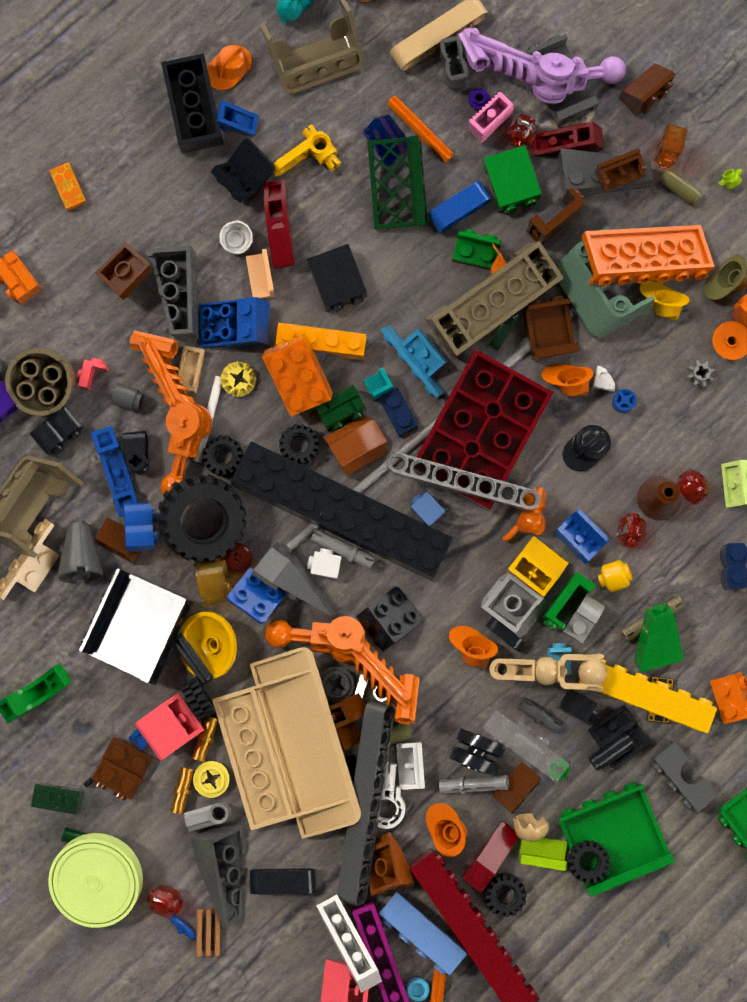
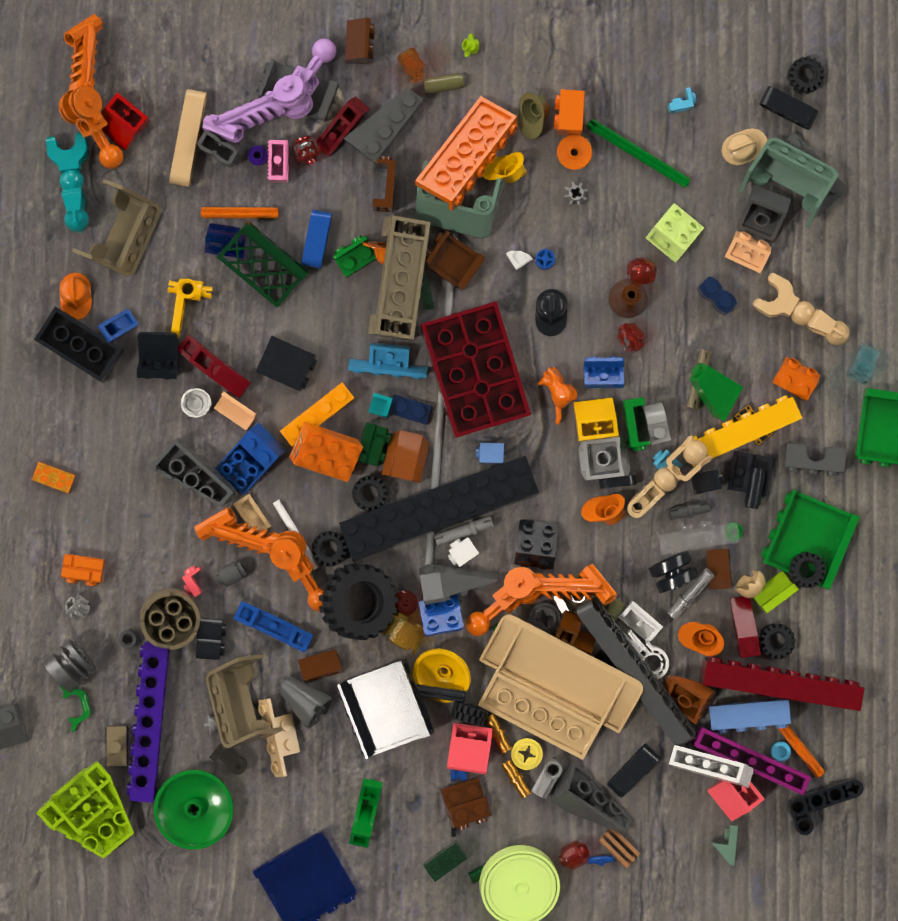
camera: 50 degrees left, 5 degrees up
(124, 270) = (148, 496): reddish brown plate -> none
(136, 448) = (269, 598): black piece -> none
(139, 527) = (325, 646): blue brick -> none
(228, 381) = (285, 499): light yellow gear -> none
(474, 481) = (507, 413): light grey beam -> none
(512, 179) = (332, 187): green panel -> none
(570, 379) = (495, 280): orange piece -> none
(615, 576) = (649, 376): yellow head -> none
(621, 170) = (397, 116): reddish brown hinge -> none

